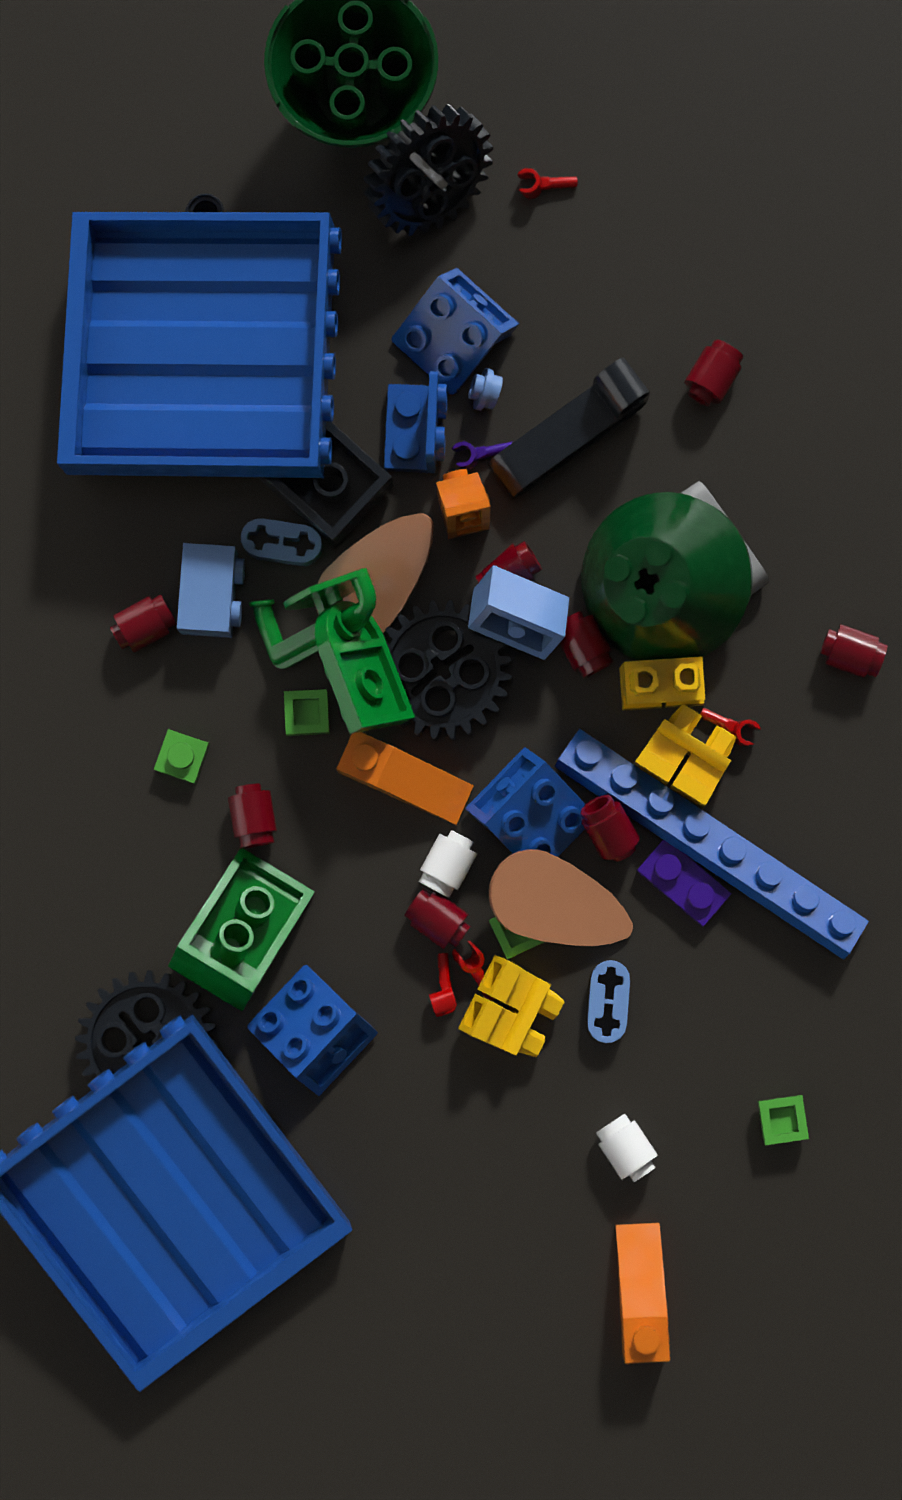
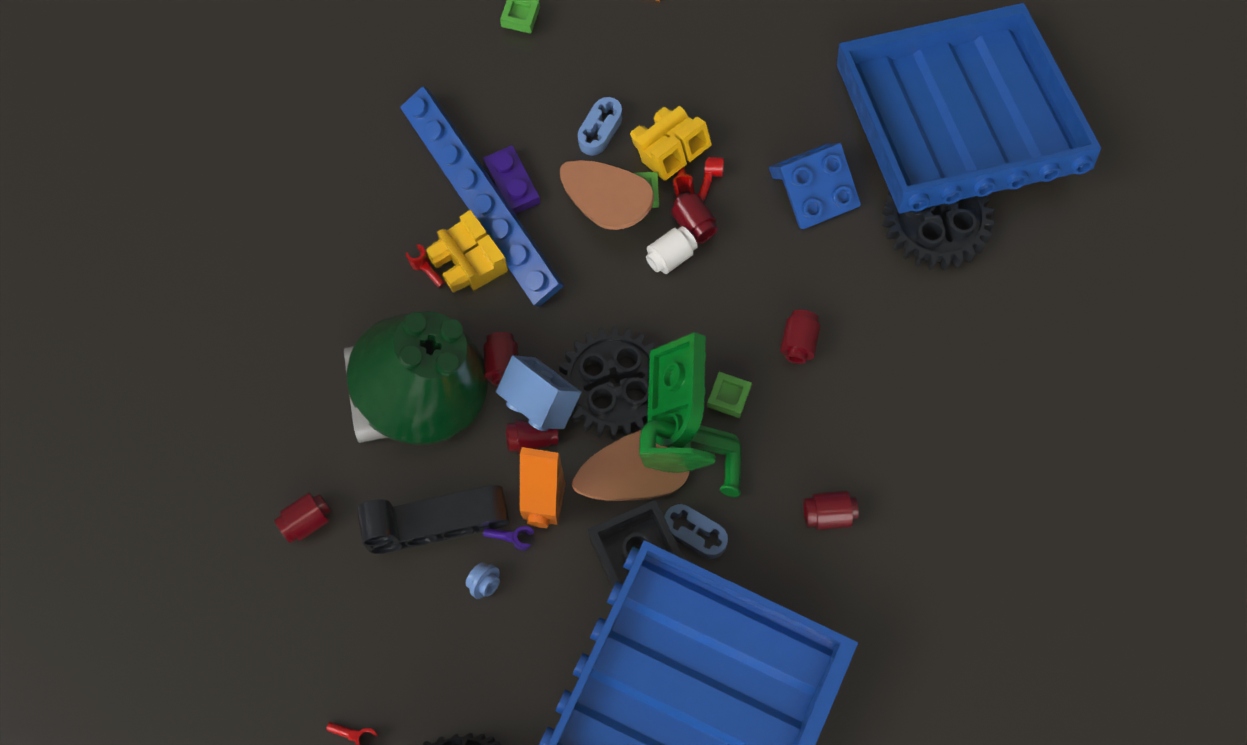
camera: 160 degrees left, 15 degrees down
(182, 756) = (837, 404): bright green plate -> none
(209, 590) = (768, 513): medium blue brick -> none
(240, 929) = (839, 263): green slope -> none
(404, 777) = (676, 317): orange slope -> none
(412, 427) = (549, 573): blue bracket -> none
(453, 329) = (484, 640): blue bracket -> none
(529, 807) = (597, 266): blue bracket -> none
(609, 828) = (545, 225): dark red brick -> none
(627, 1148) = (630, 33): white brick -> none
(660, 681) = (461, 303): yellow hips -> none
(853, 651) = (312, 276): dark red brick -> none

